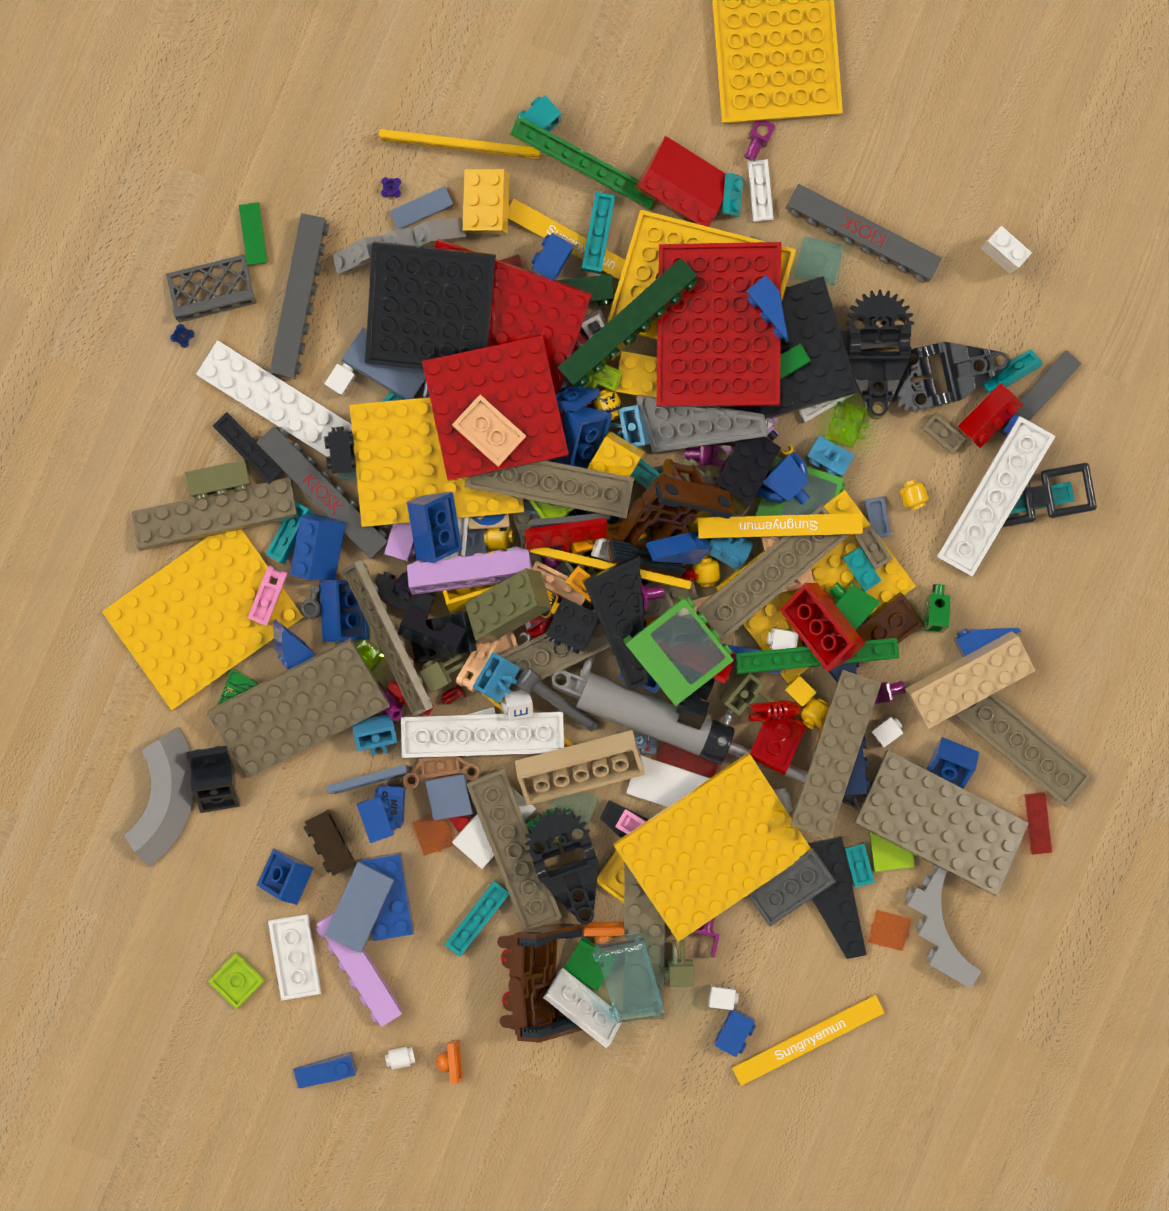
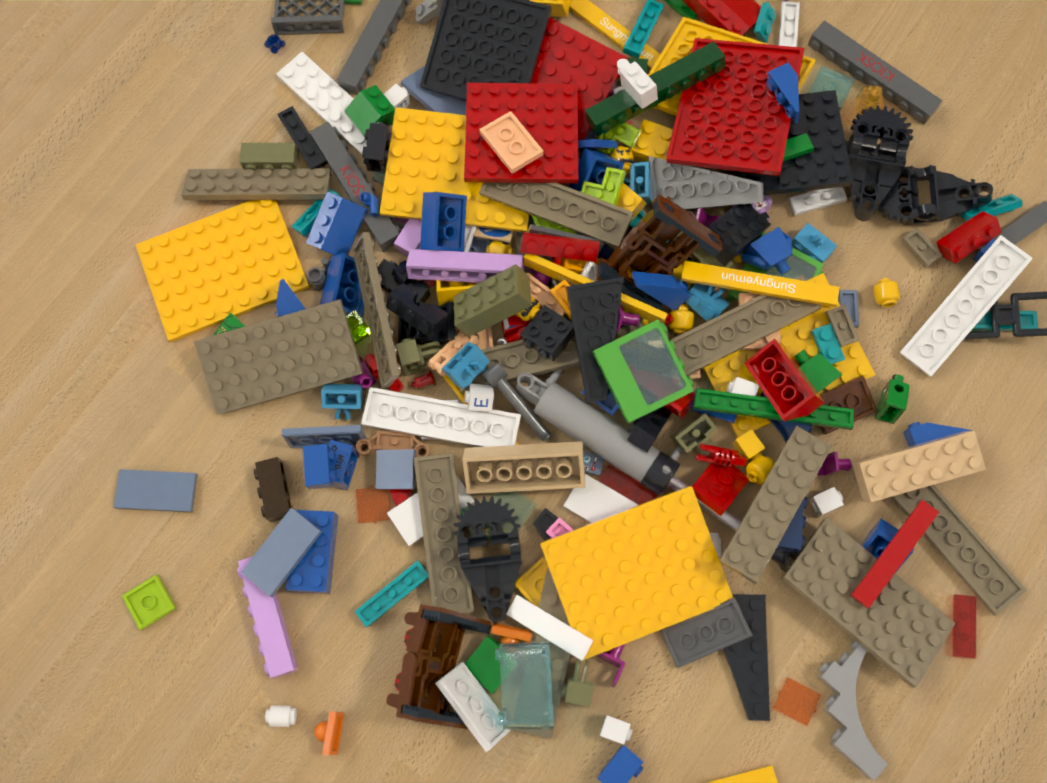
camera: 15 degrees right, 15 degrees down
(169, 798) = (139, 417): light grey brick -> none
(208, 869) = (155, 490): none -> sand blue tile
(213, 779) = (184, 406): black bracket -> none
(267, 596) = (281, 257): bright pink plate -> none
(285, 877) = (223, 512): blue slope -> none
(294, 957) = (210, 592): white tile -> none
(318, 405) = (370, 107): none -> green slope
(326, 1070) = (206, 711): blue slope -> none
(349, 513) = (371, 201): none -> blue arm
(553, 256) = (604, 28): blue brick -> none
(603, 455) = (610, 187): none -> lime tile
(607, 330) = (637, 83): none -> white brick
(639, 919) = (549, 627): none -> white sticker
(846, 424) = (834, 219): clear neon green brick -> none
(859, 865) = (777, 627): teal plate -> none
(863, 278) = (868, 97): none -> clear yellow torso
(889, 856) = (810, 622): lime tile -> none
(958, 775) = (894, 554): none -> red tile
(1006, 250) = (1002, 103): white brick -> none

